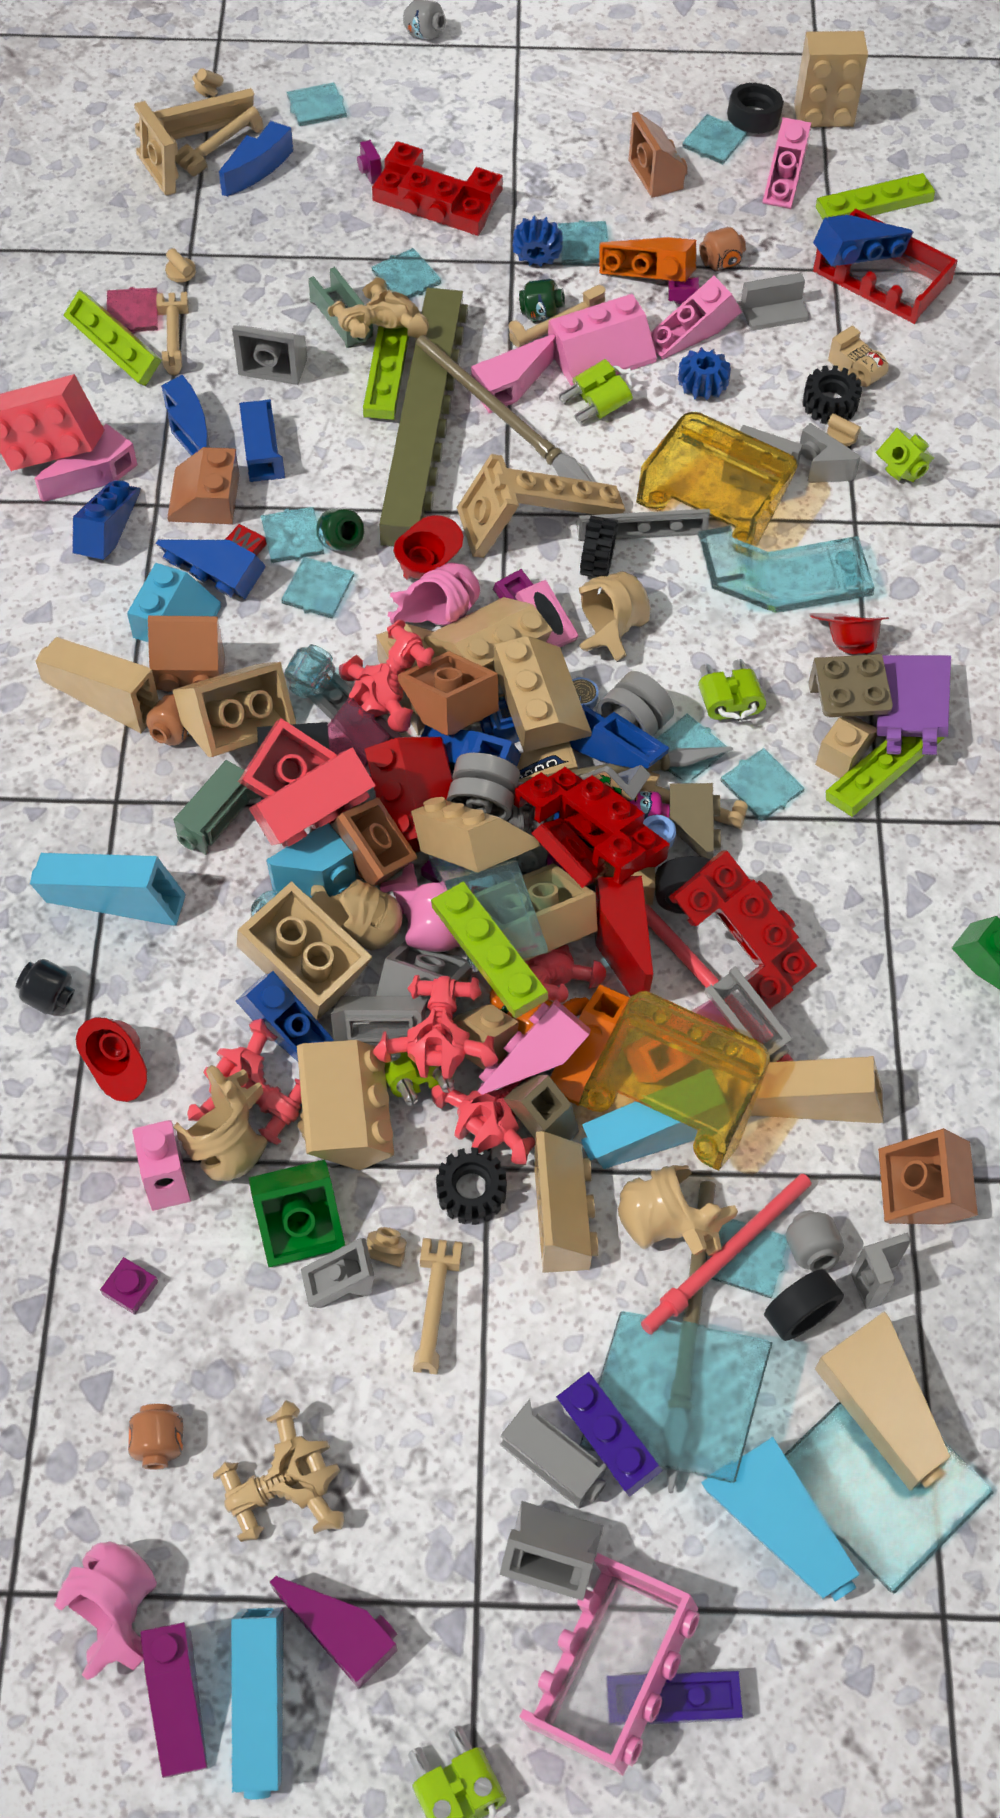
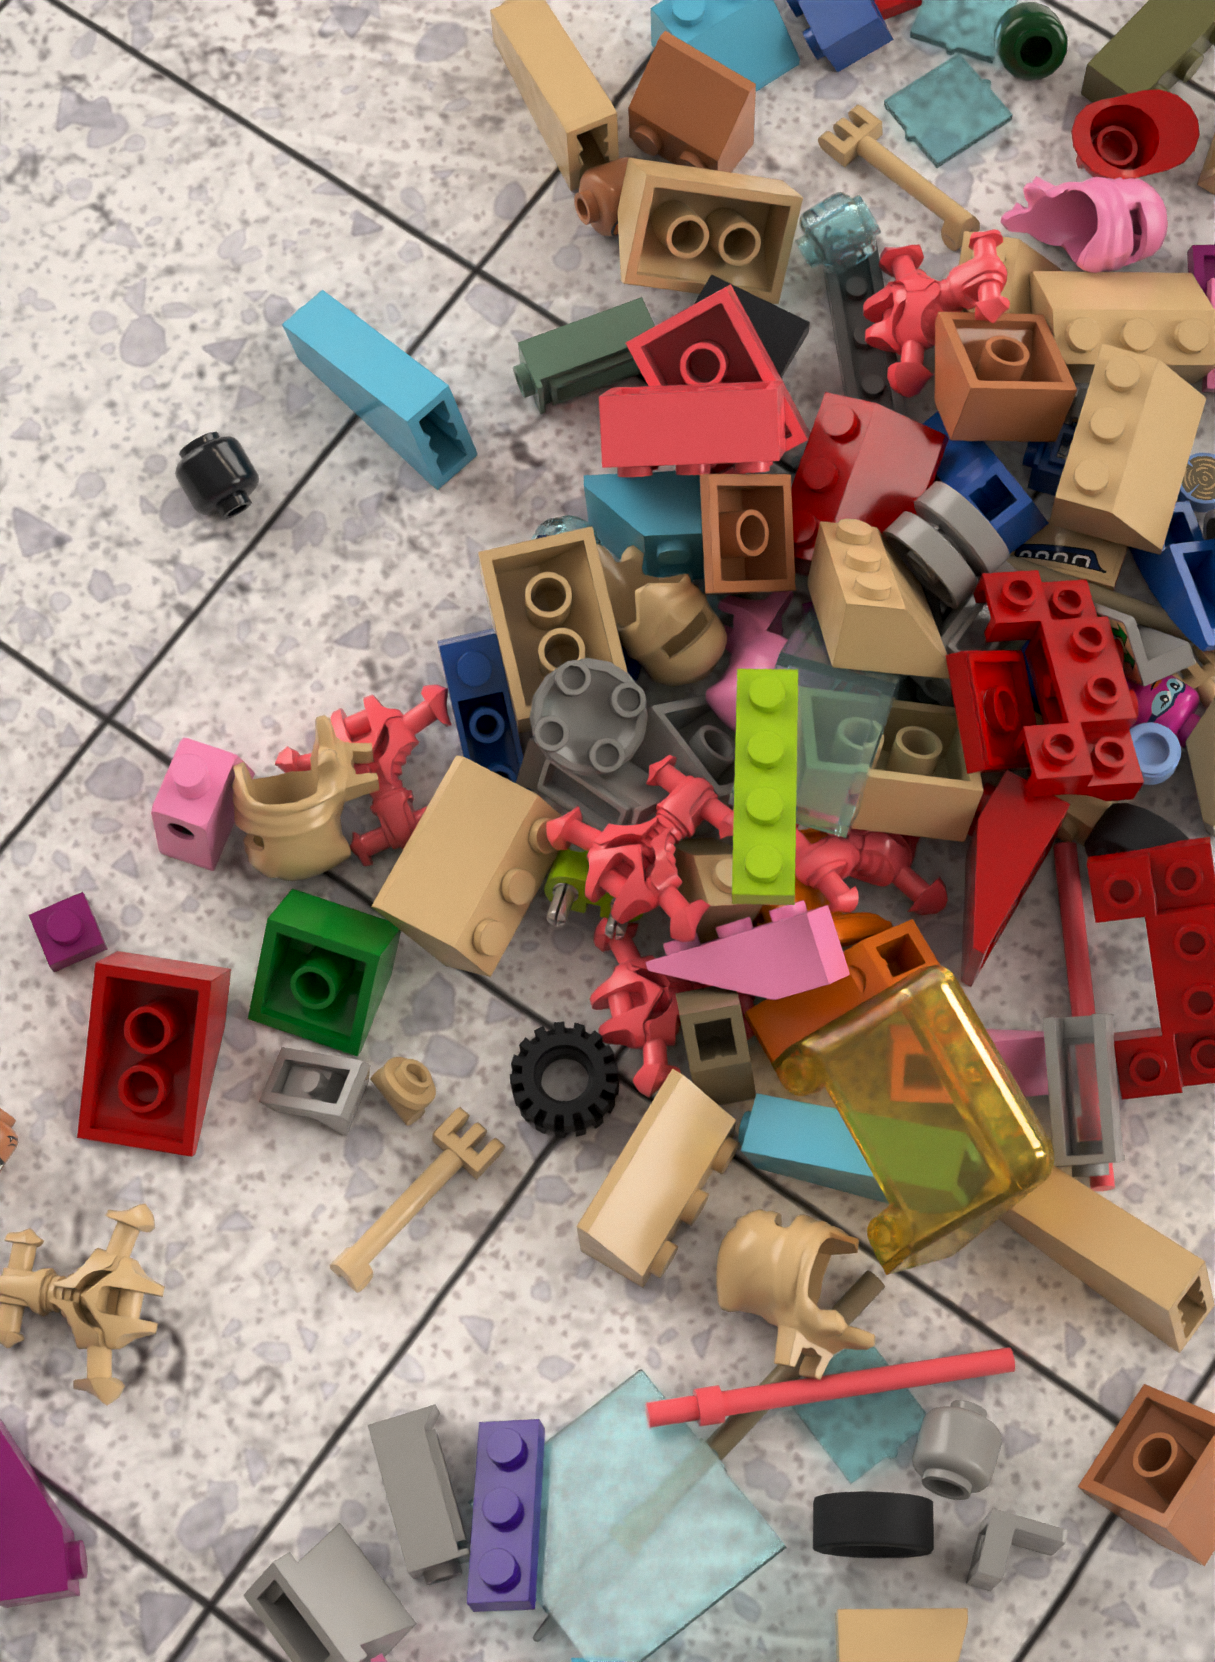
camera: 40 degrees right, 10 degrees up
(113, 1057) = (239, 619): red piece -> none
(228, 1319) = (151, 1051): none -> red slope
(280, 623) = (861, 140): none -> tan hinge
(354, 729) = (835, 360): clear pink piece -> none
(358, 980) = (588, 717): none -> light grey dish

